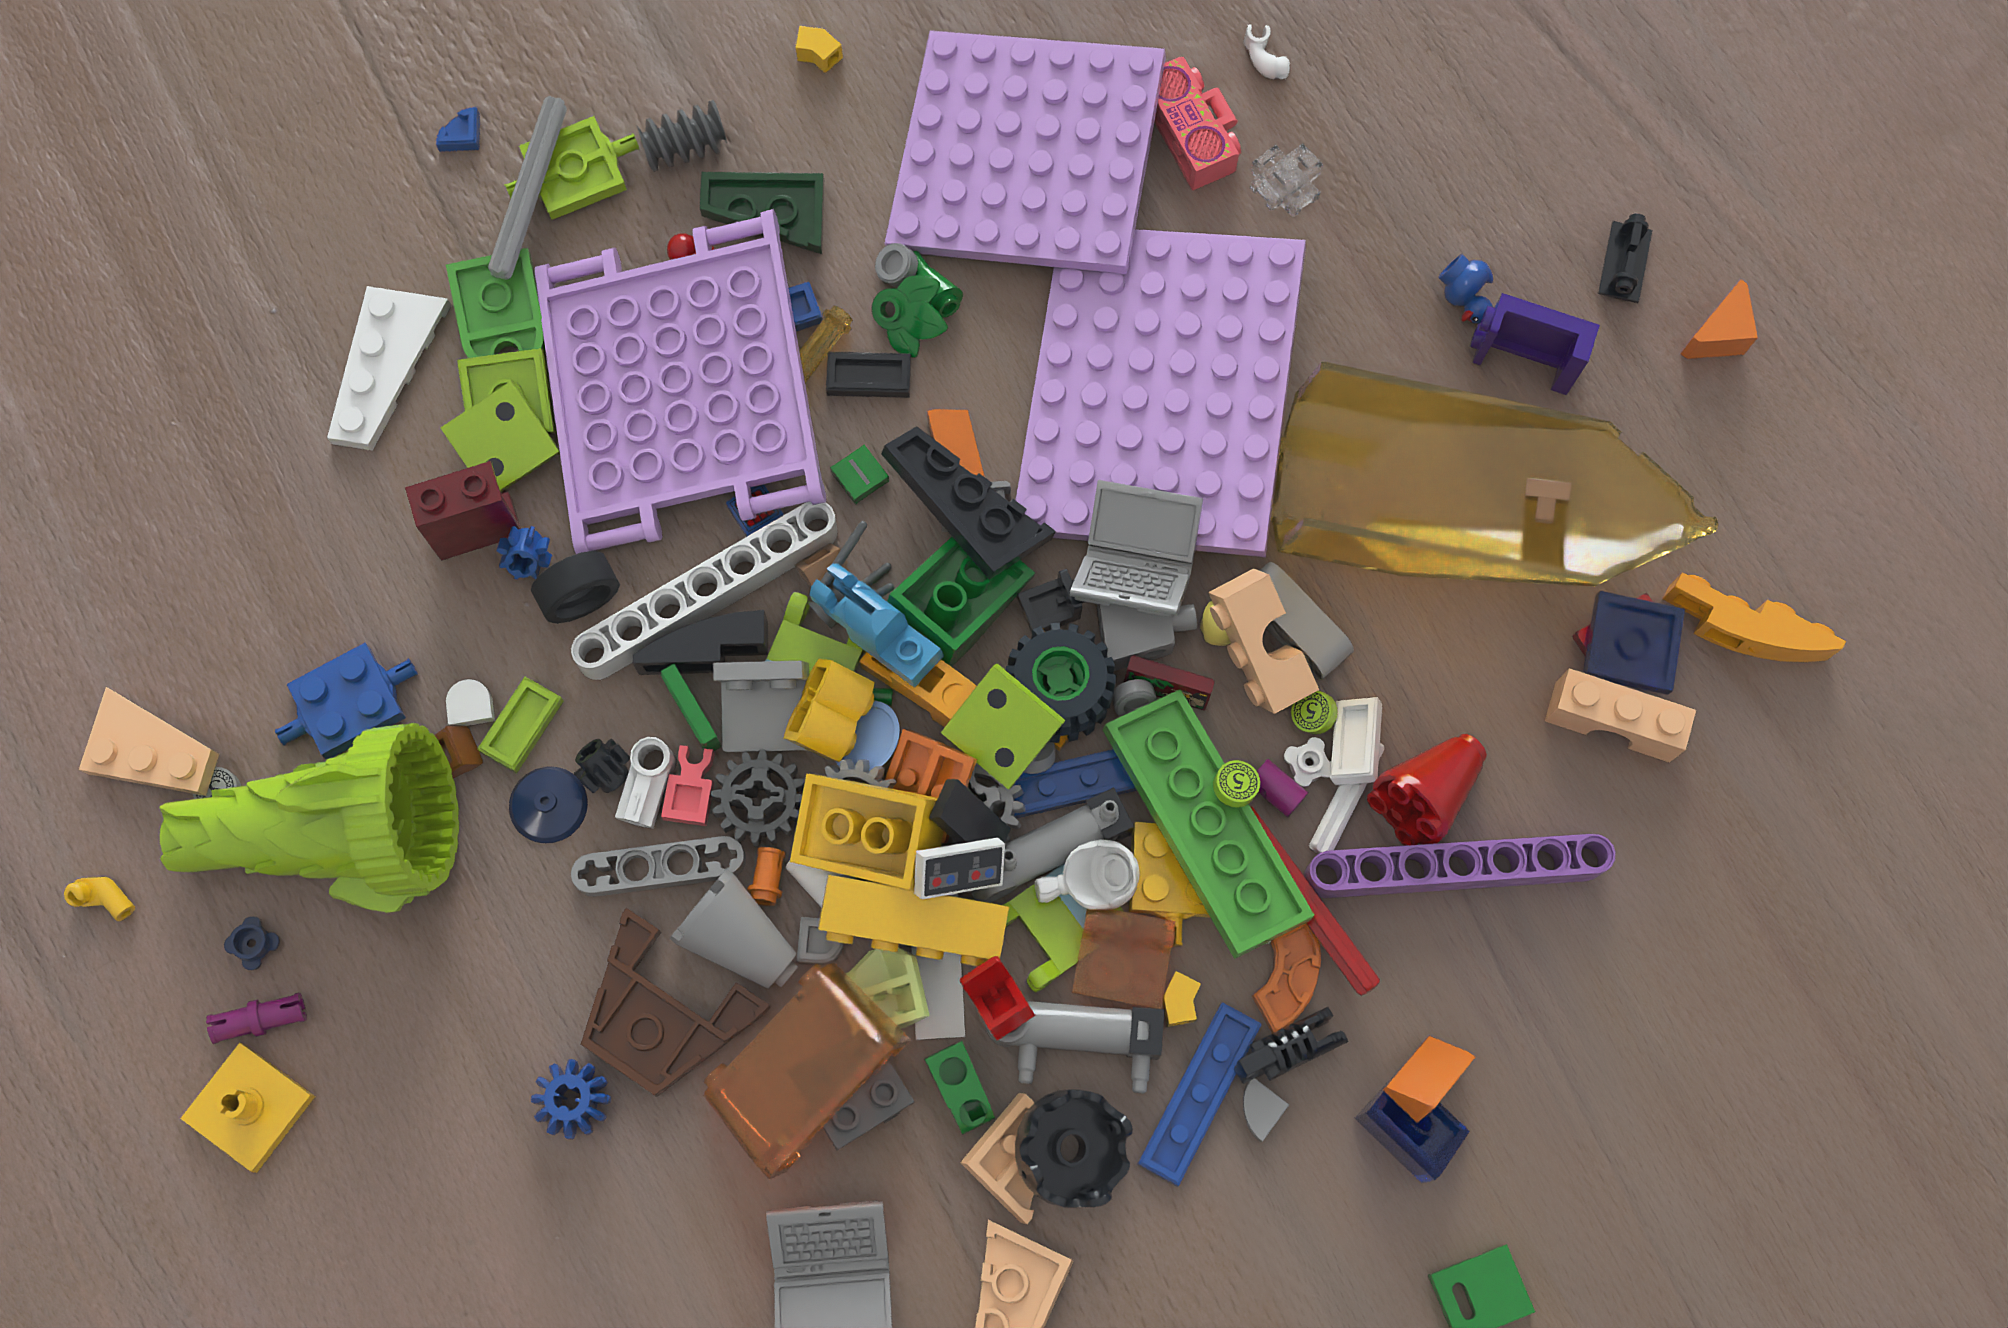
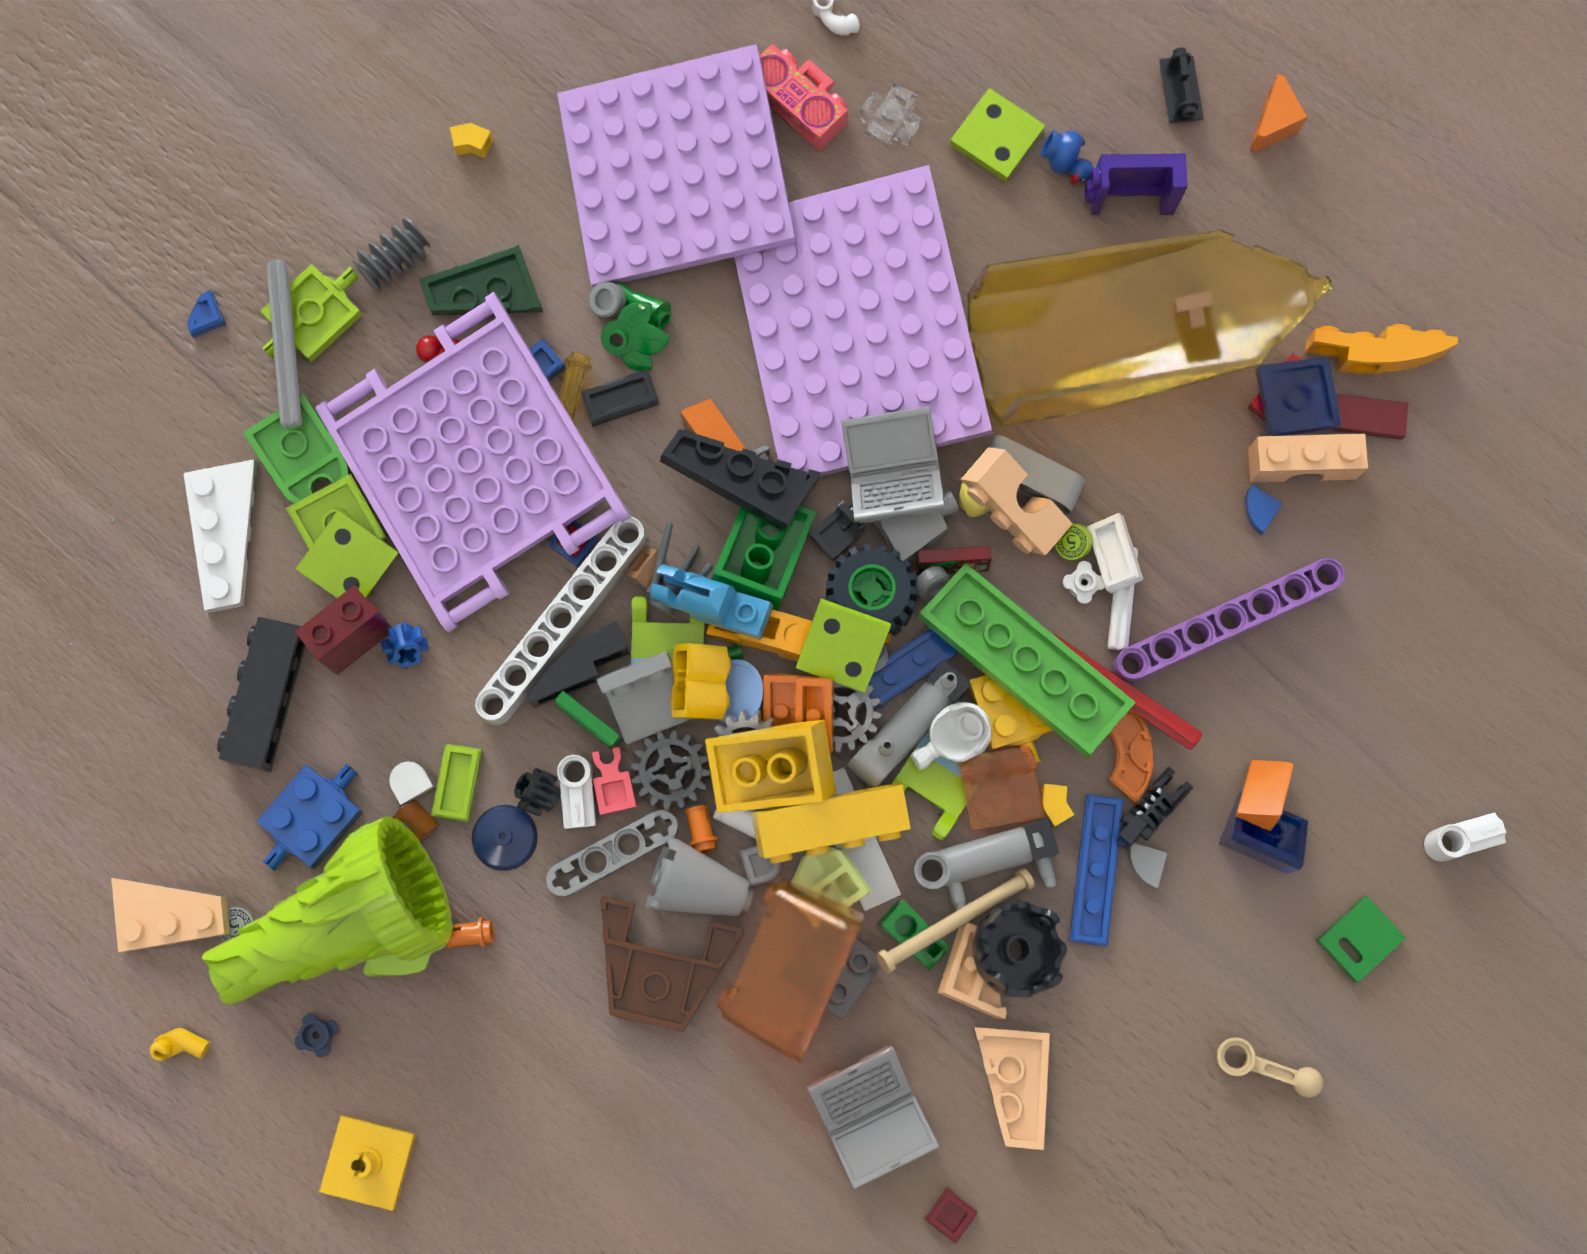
camera: 20 degrees left, 5 degrees up
(256, 1018) = (345, 1092): magenta pin -> none
(348, 552) = (262, 695): none -> black brick
(474, 897) = (472, 934): none -> orange pin
(566, 1117) = (620, 1072): blue gear -> none
(575, 587) = (458, 658): black tyre -> none
(859, 474) = (645, 482): green tile -> none
(921, 1099) = (1021, 881): none -> tan bar
(959, 868) = (854, 770): tile -> none
(966, 816) = (847, 731): black tile -> none
(997, 997) = (920, 858): red bracket -> none
(1236, 783) = (1038, 622): lime tile -> none
(1280, 788) = (1068, 611): magenta piece -> none
(1398, 239) = (997, 135): none -> lime tile
(1428, 790) = (1184, 571): red cone -> none
(1545, 754) = (1260, 508): none -> blue tile
(1650, 1221) = (1466, 837): none -> white piece
(1713, 697) = (1372, 416): none -> dark red tile

